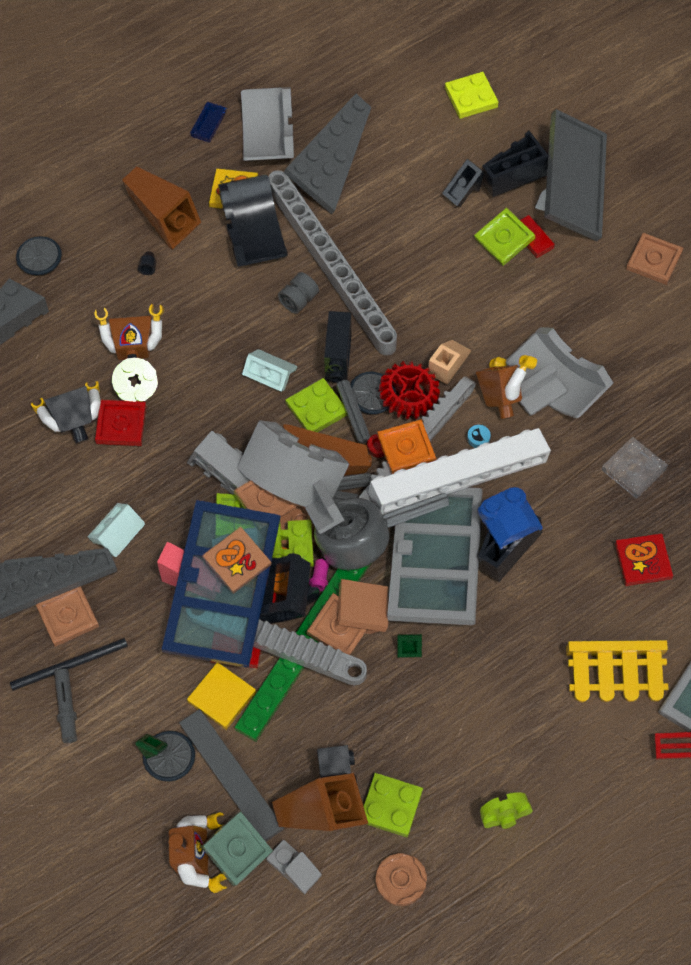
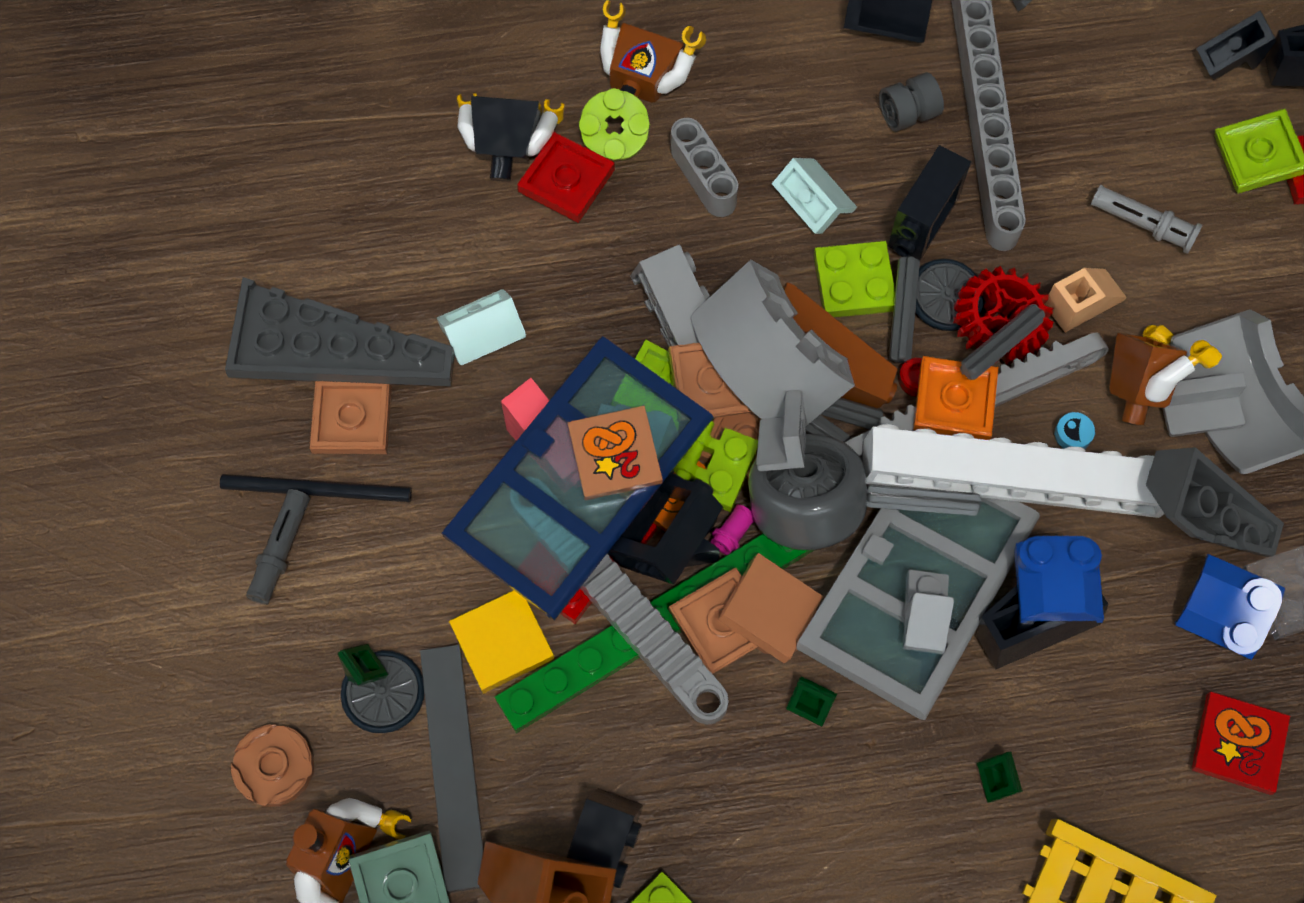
camera: 25 degrees right, 5 degrees up
(128, 825) = (272, 765): none -> nougat tile
(202, 390) = (708, 181): none -> light grey beam
(416, 404) = (1002, 342): none -> dark grey axle
(433, 301) = (1105, 198): none -> light grey pin
(448, 566) = (927, 611): none -> light grey slope
(528, 636) = (999, 777): none -> dark green slope
(568, 440) = (1210, 503): none -> dark grey wedge
(605, 491) = (1231, 607): none -> blue slope

